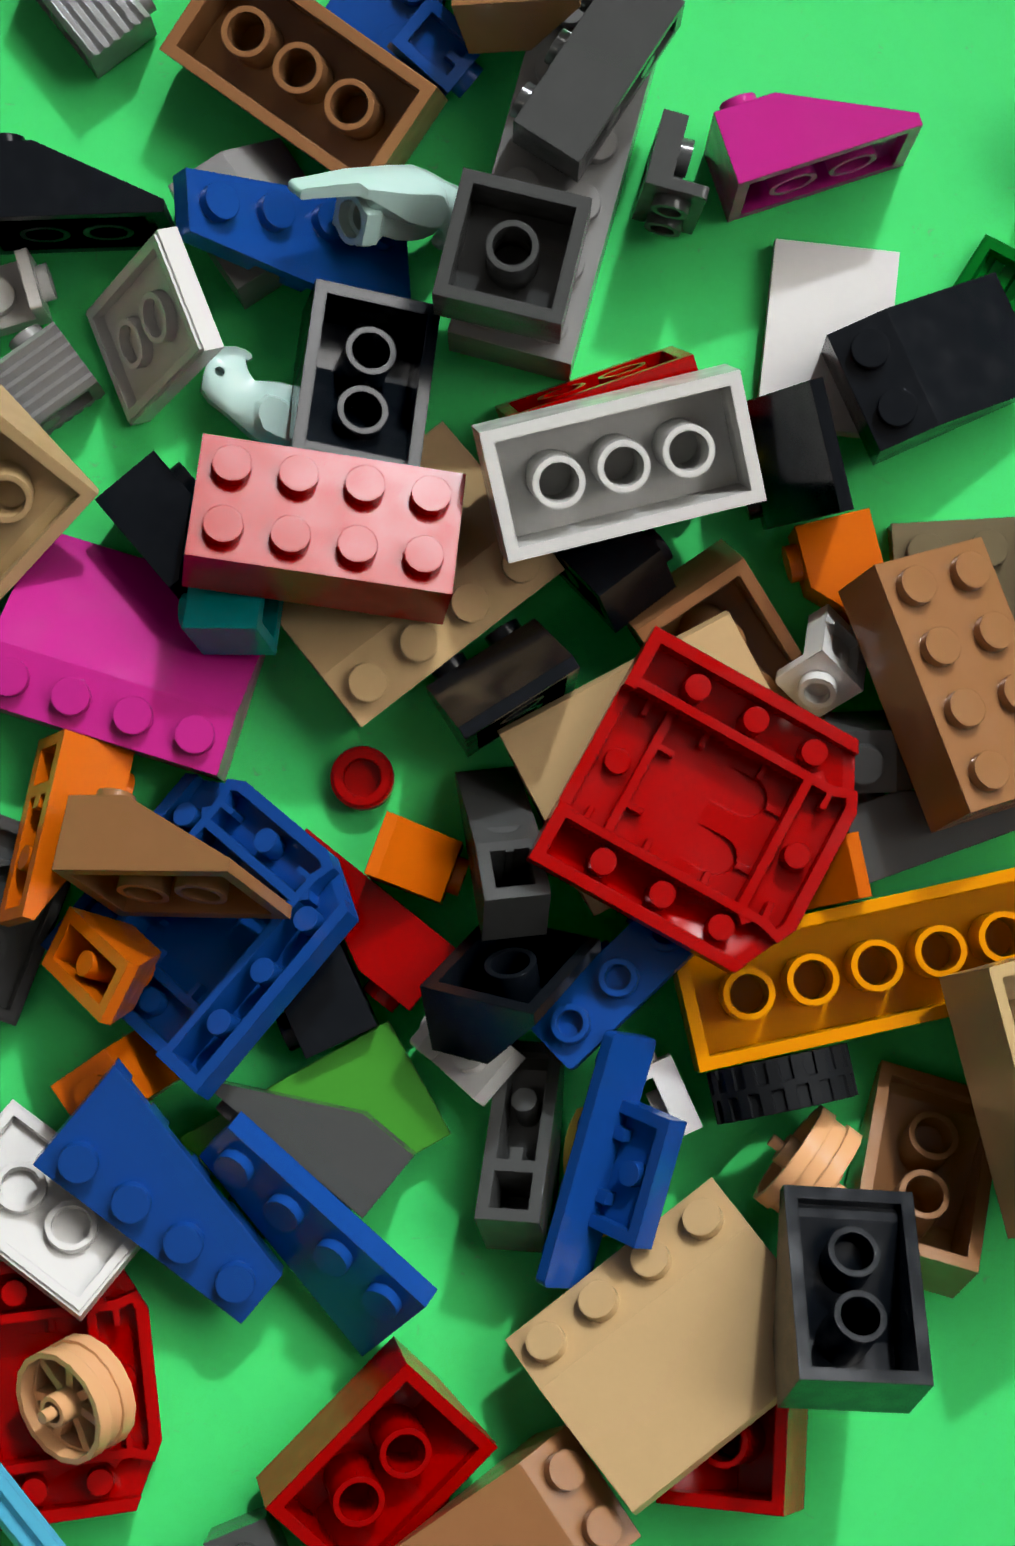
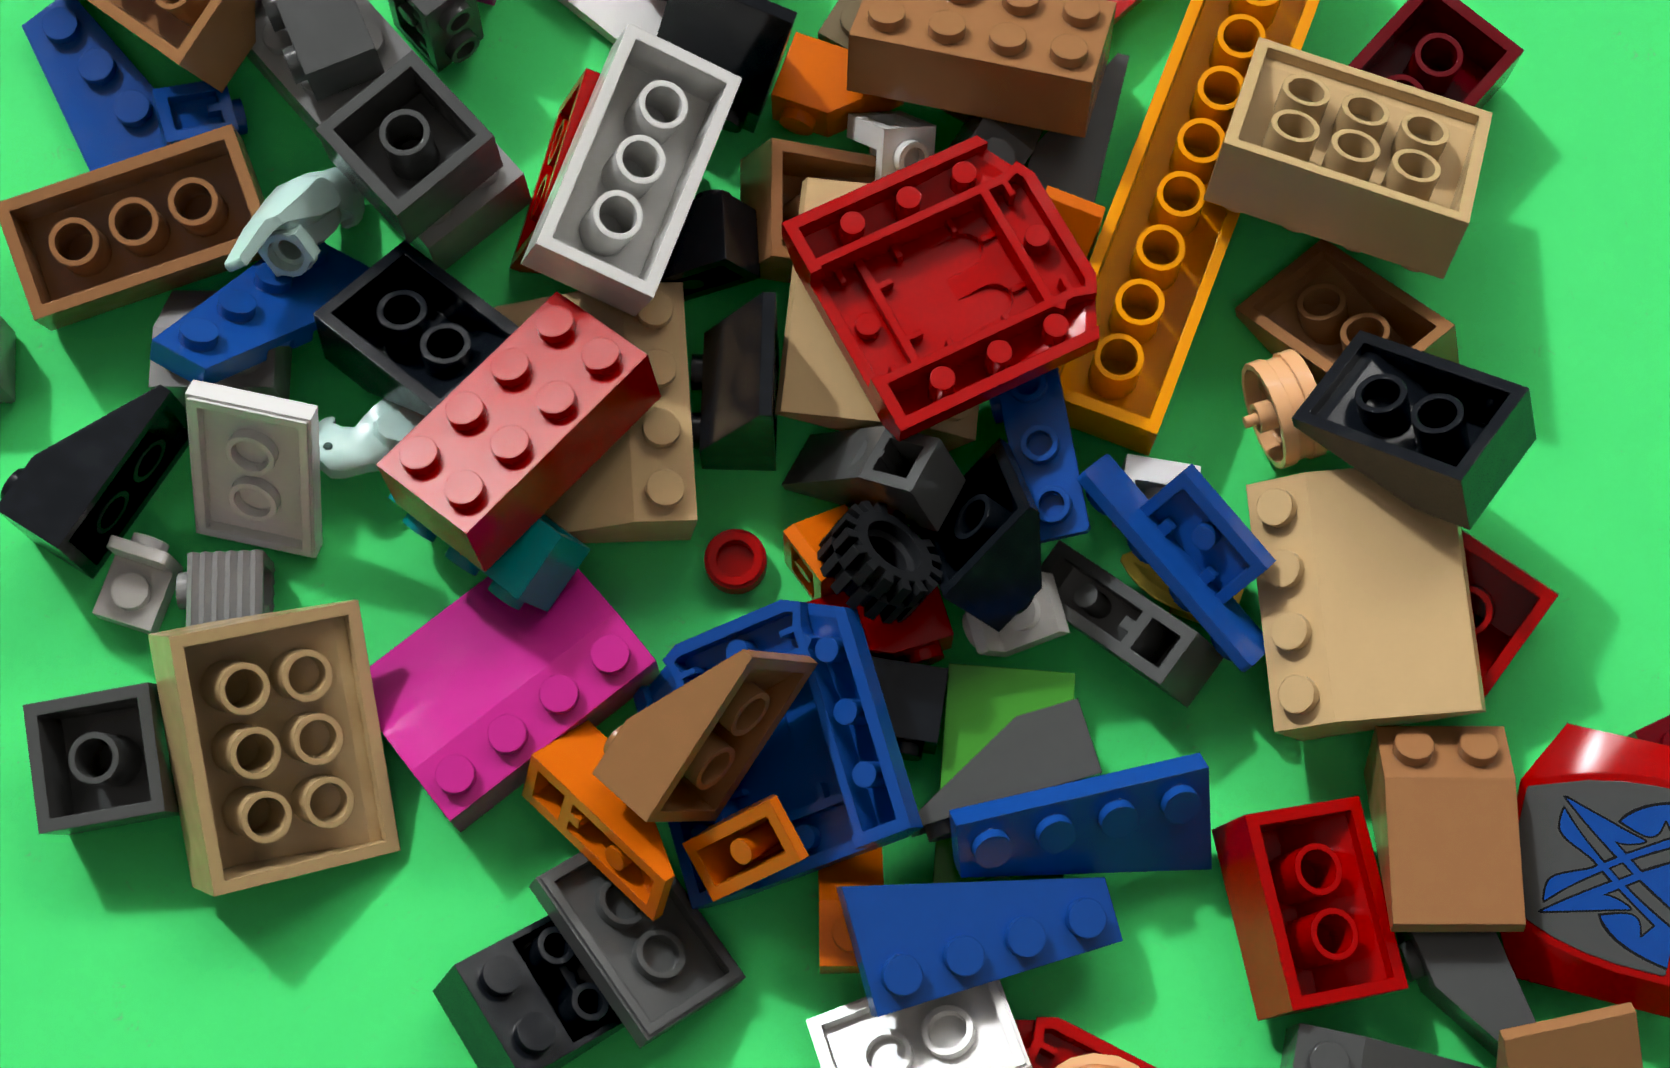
camera: 55 degrees left, 10 degrees down
(154, 514) = (412, 580): black slope -> none
(390, 905) = (879, 562): none -> black tyre
(782, 1084) = (1206, 382): black tyre -> none

